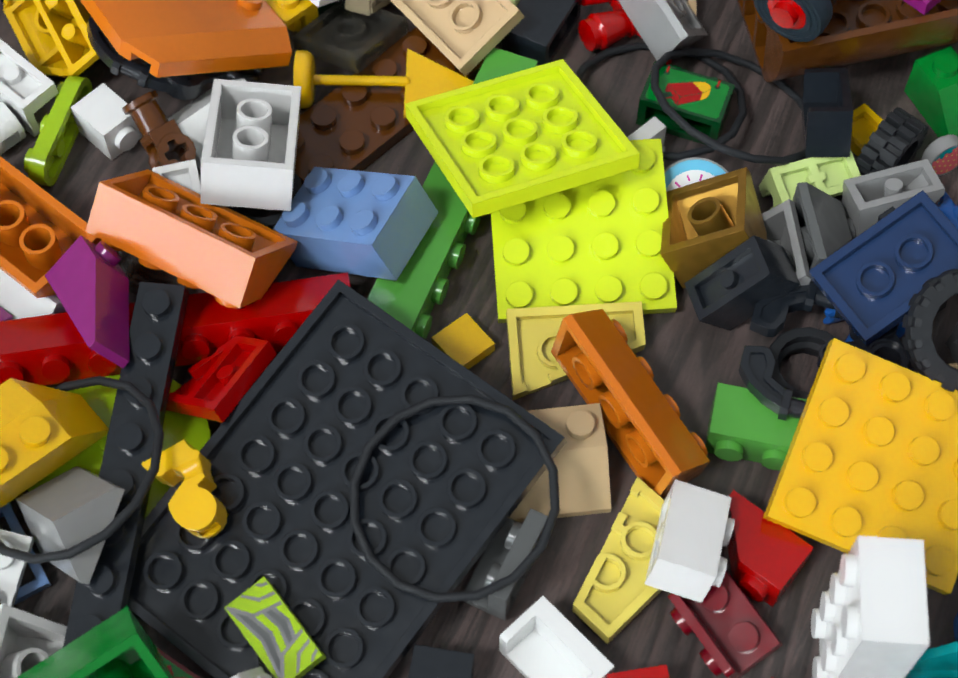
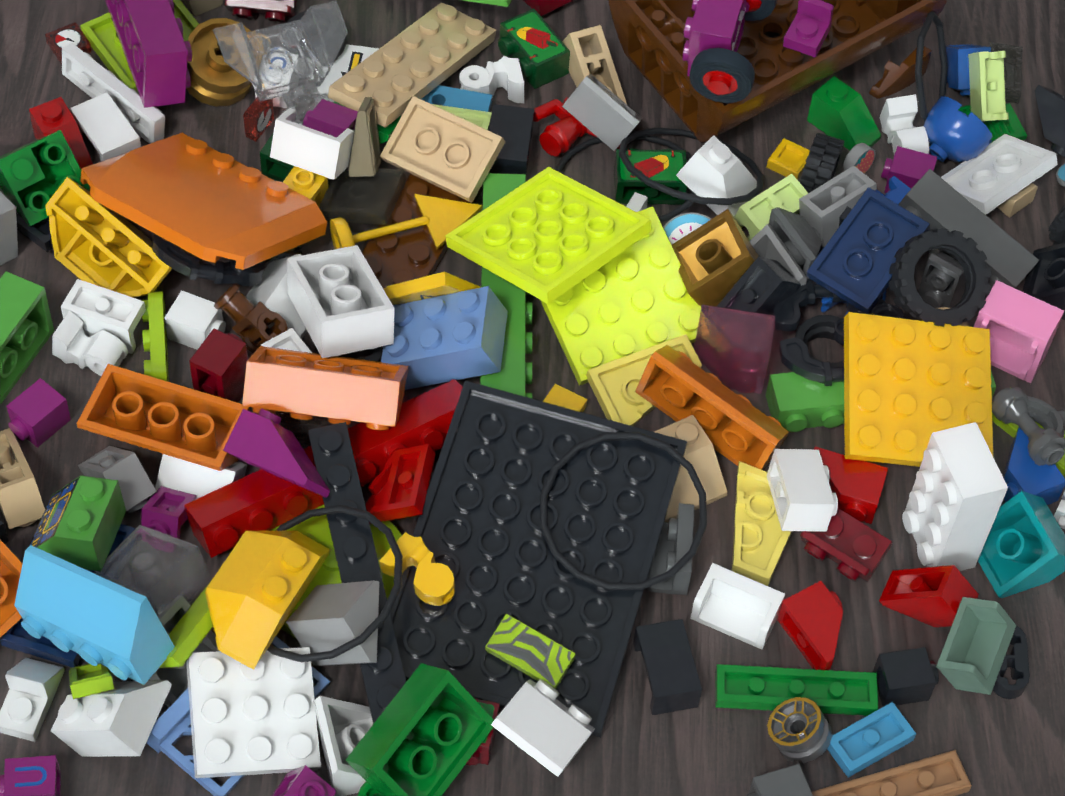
camera: 25 degrees left, 5 degrees down
(85, 168) = (220, 366): none -> dark red brick
(358, 157) = (427, 287): none -> yellow tile
(692, 336) = (735, 346): none -> clear pink slope
(758, 123) = (717, 174): none -> white slope
(827, 112) = (766, 151): black panel -> none

